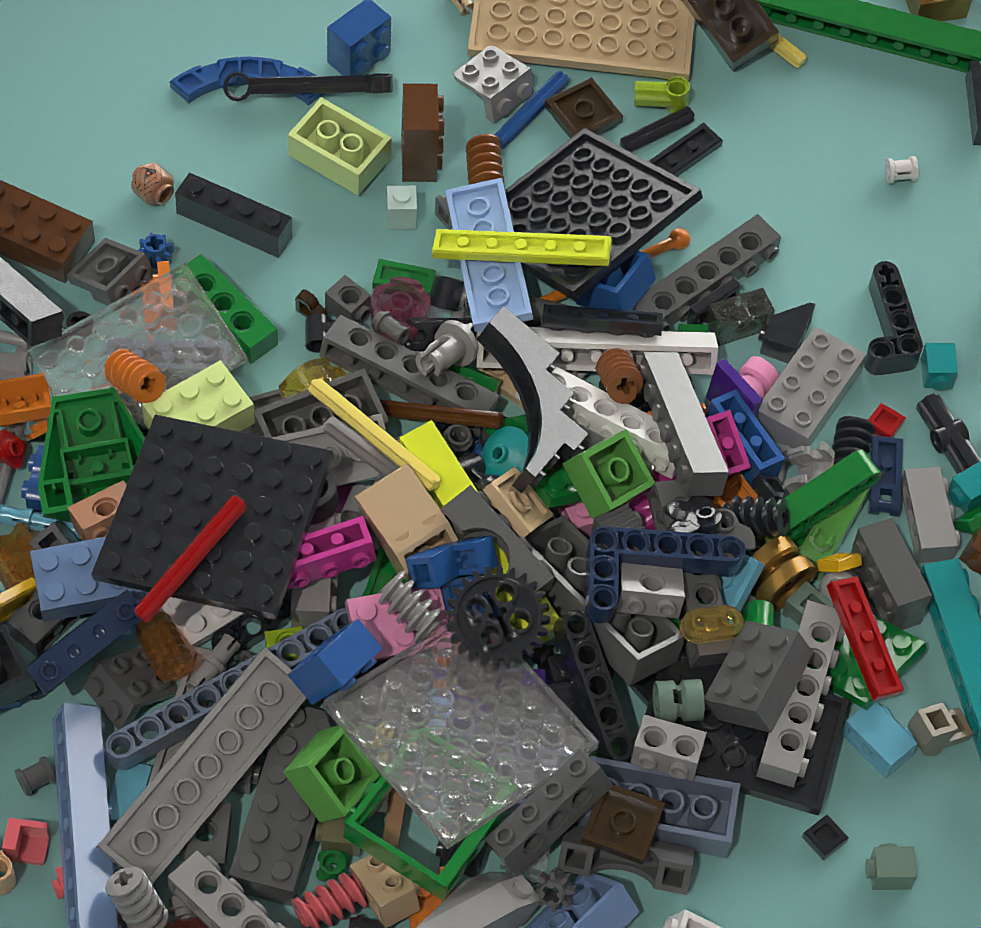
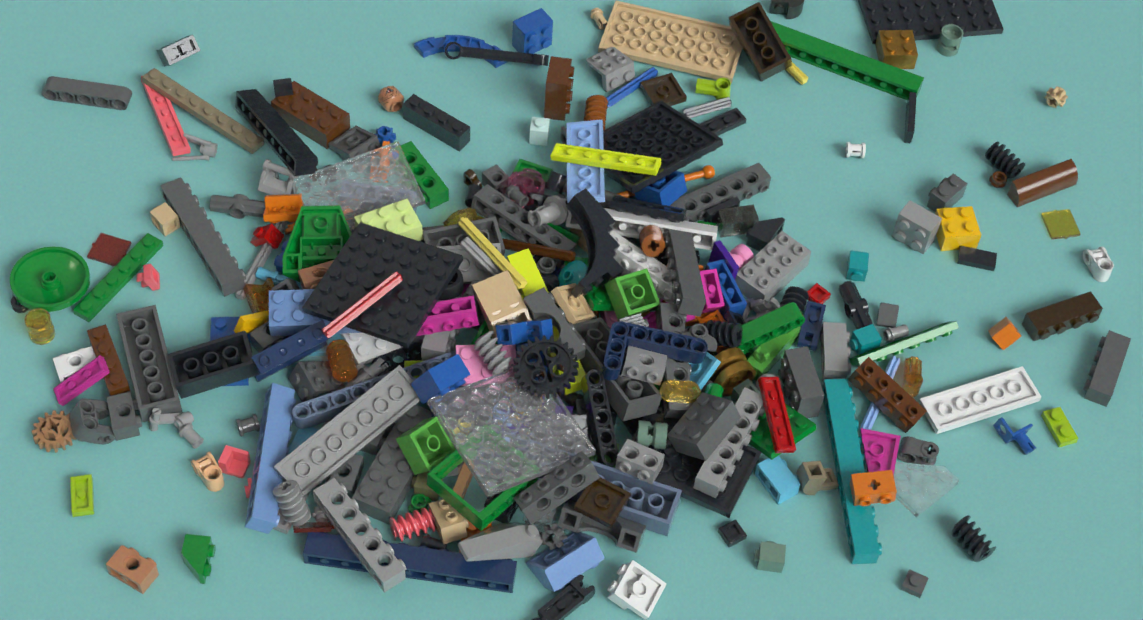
camera: 10 degrees right, 5 degrees down
(134, 376) = (353, 199): orange piece -> none
(339, 146) = (508, 91): yellowish green brick -> none
(693, 516) = (680, 324): black plate -> none
(839, 562) = (770, 369): yellow tile -> none
(890, 316) = (835, 250): black beam -> none

